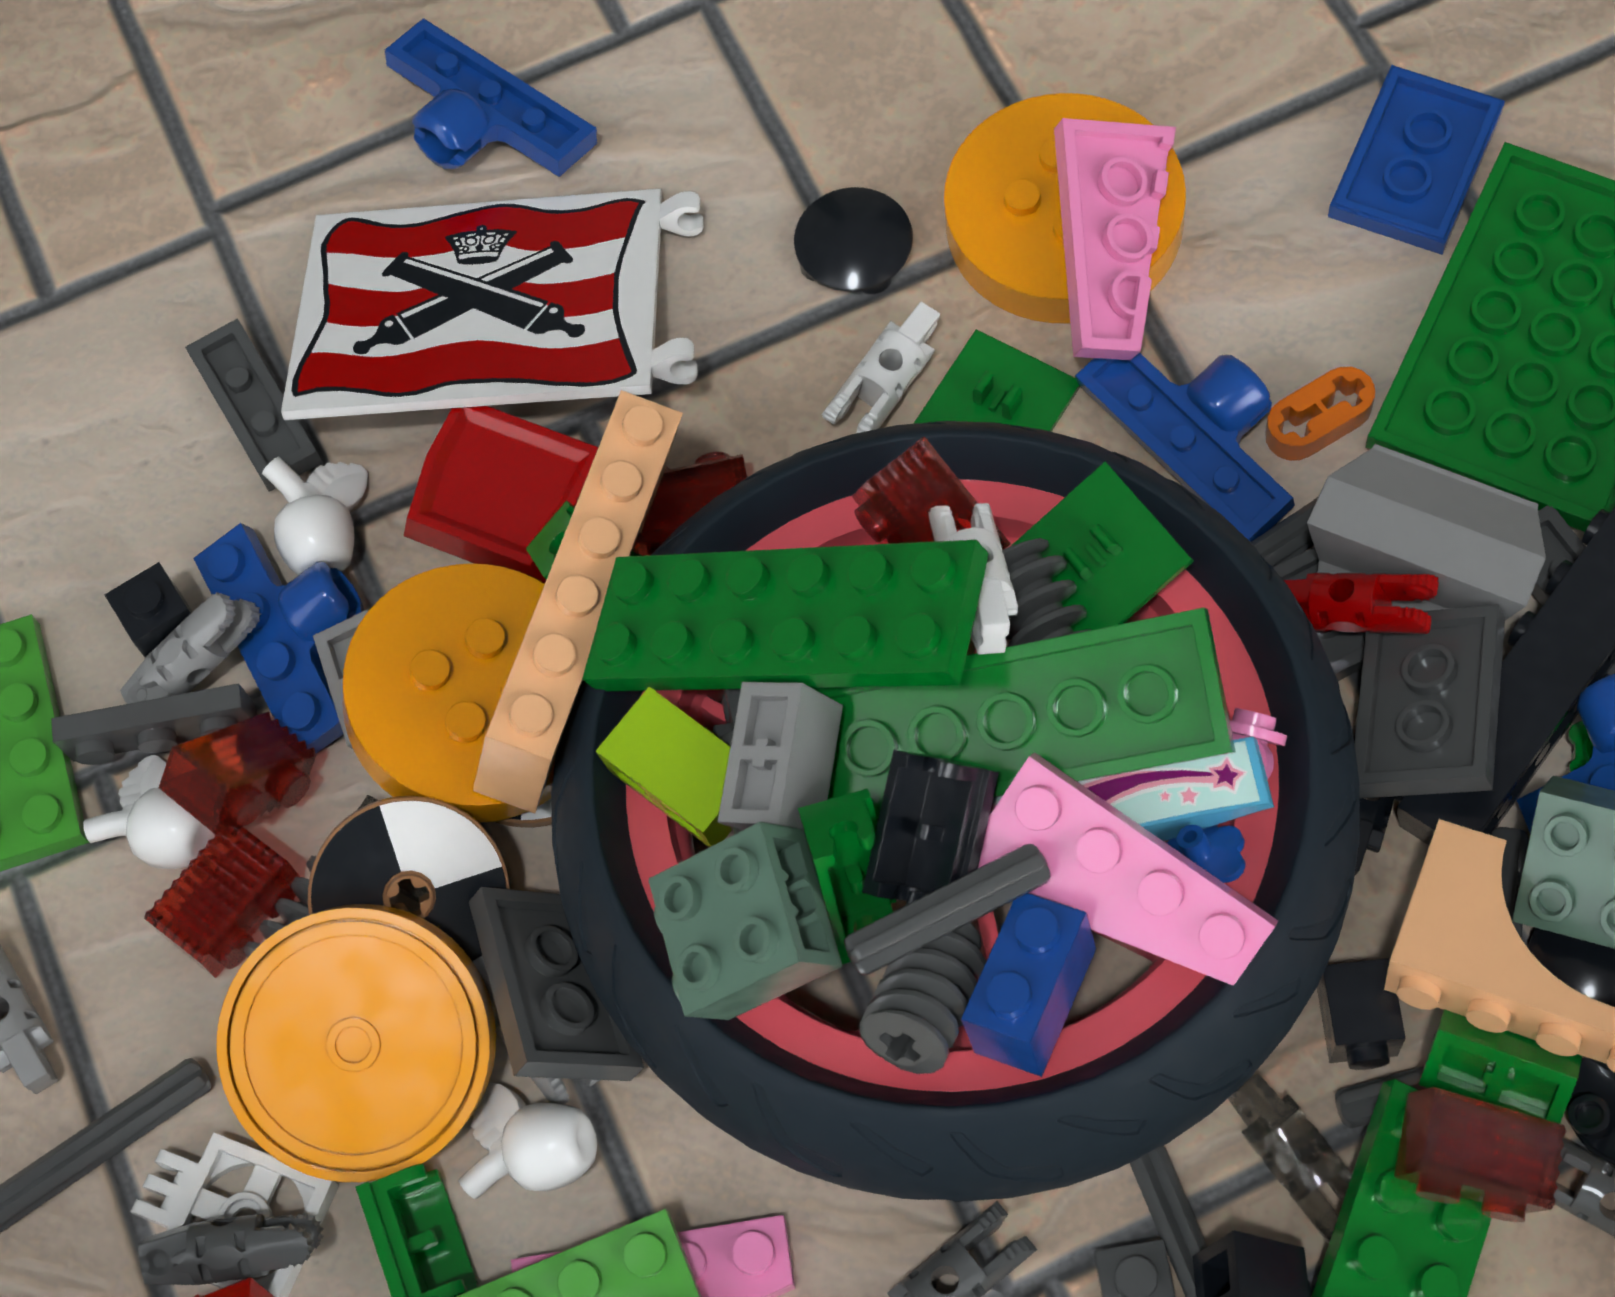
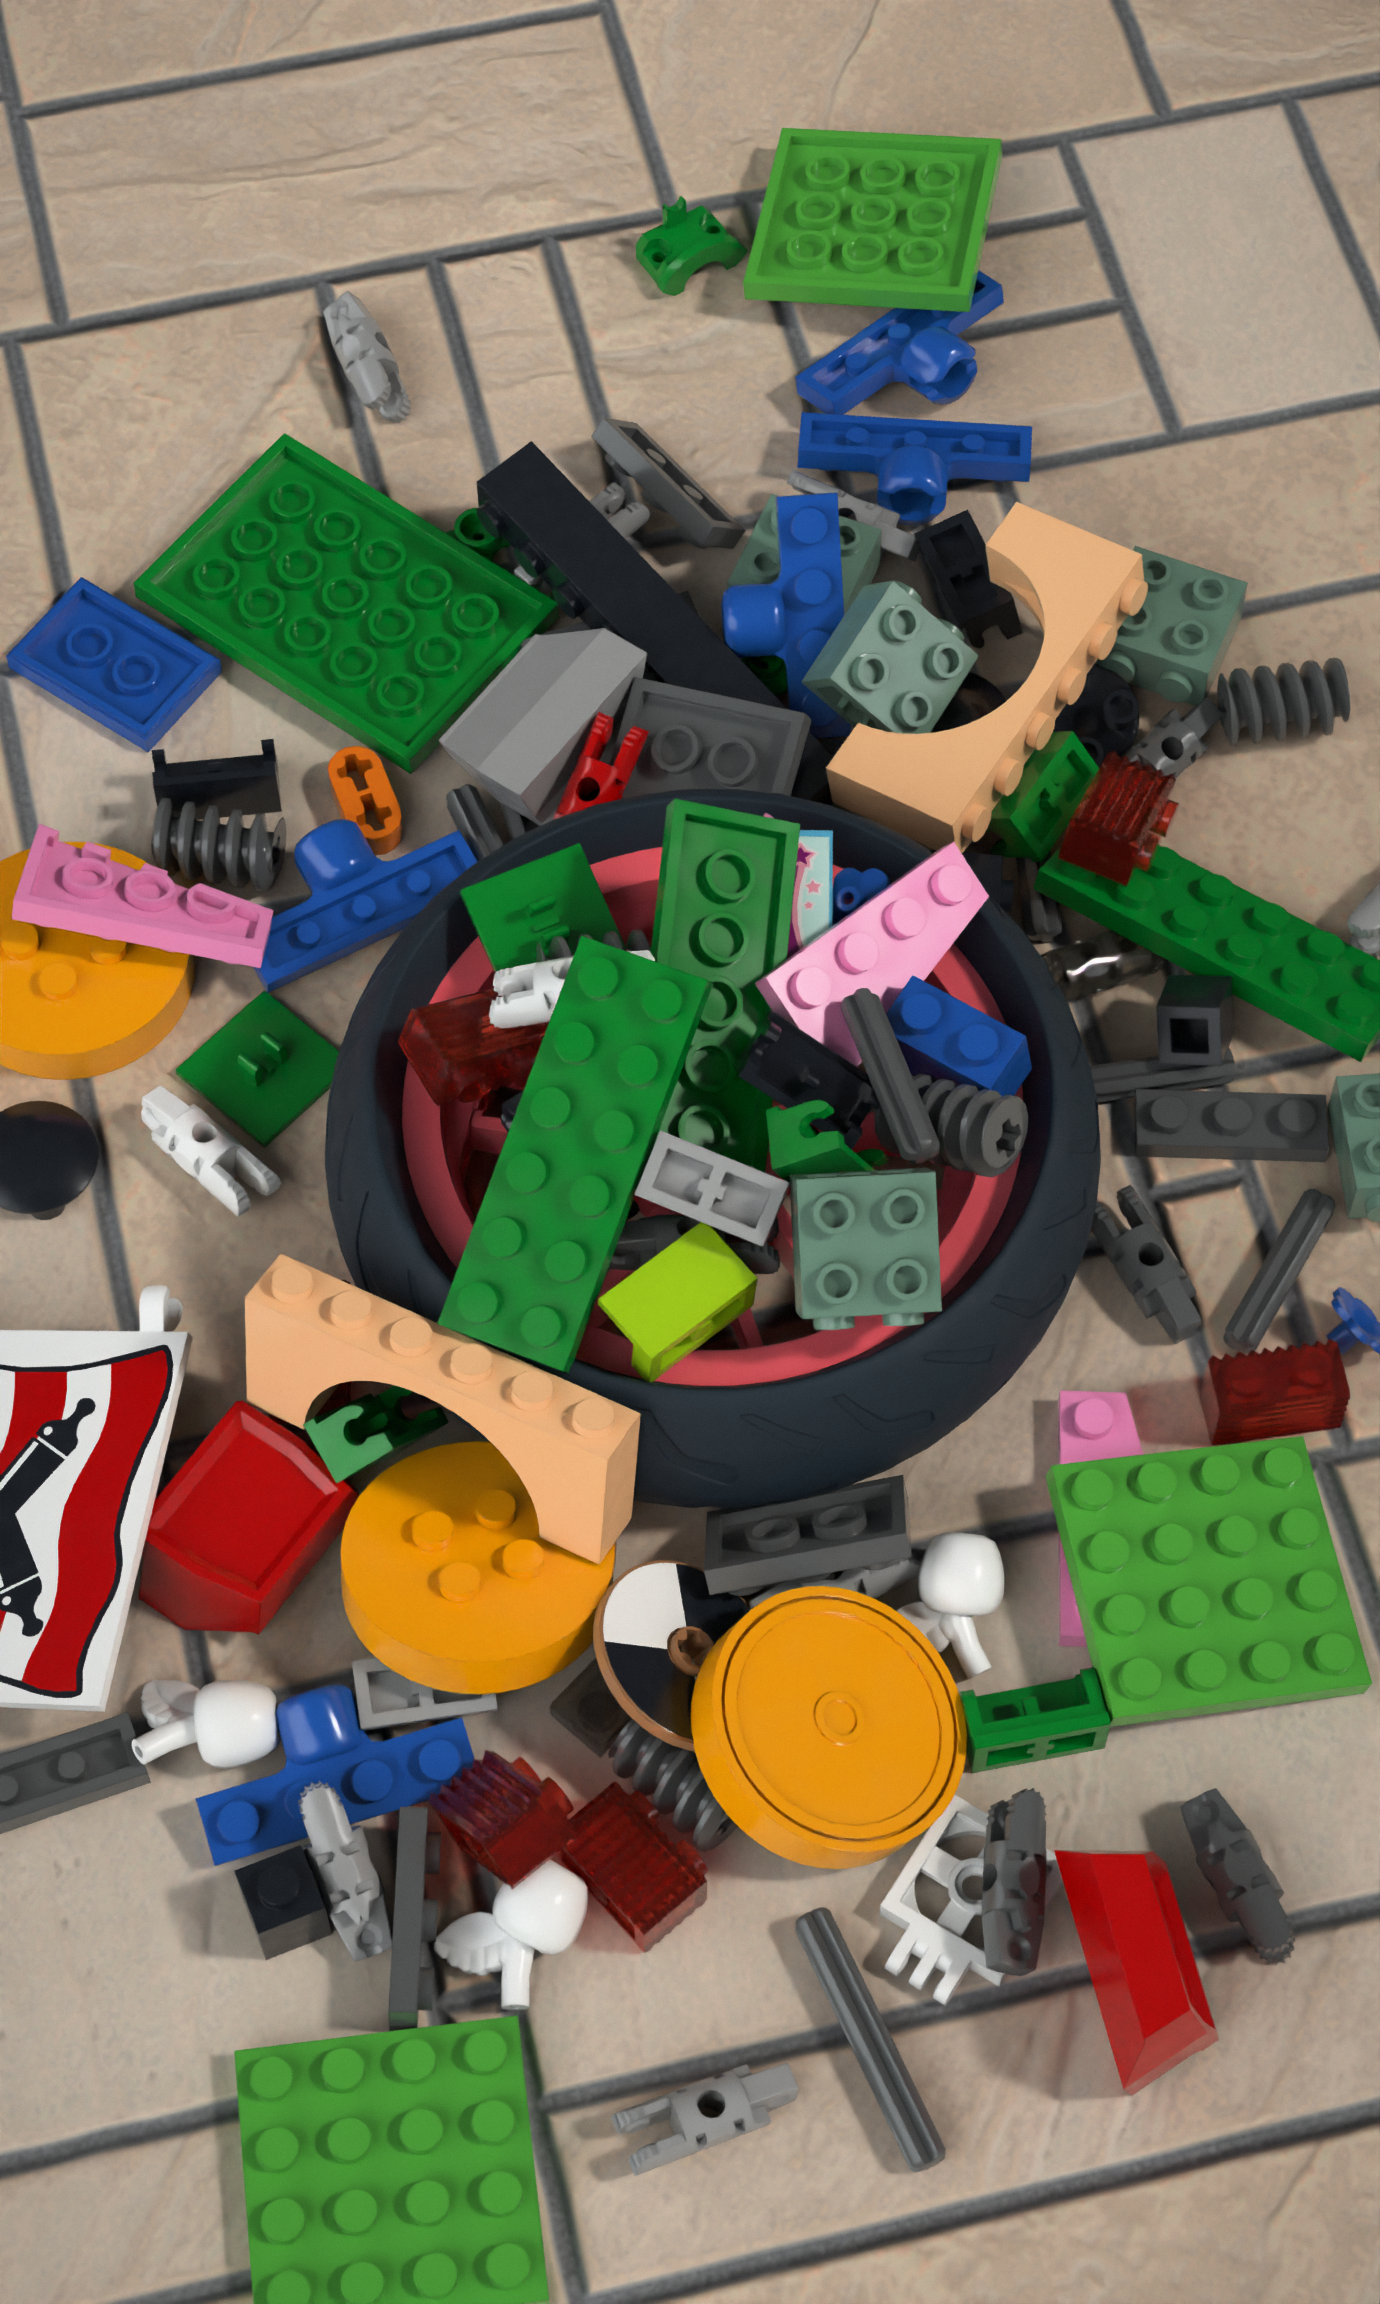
camera: 90 degrees left, 5 degrees down
(1219, 291) = (218, 848): none -> dark grey piece
(1298, 277) = (229, 783): none -> black hinge

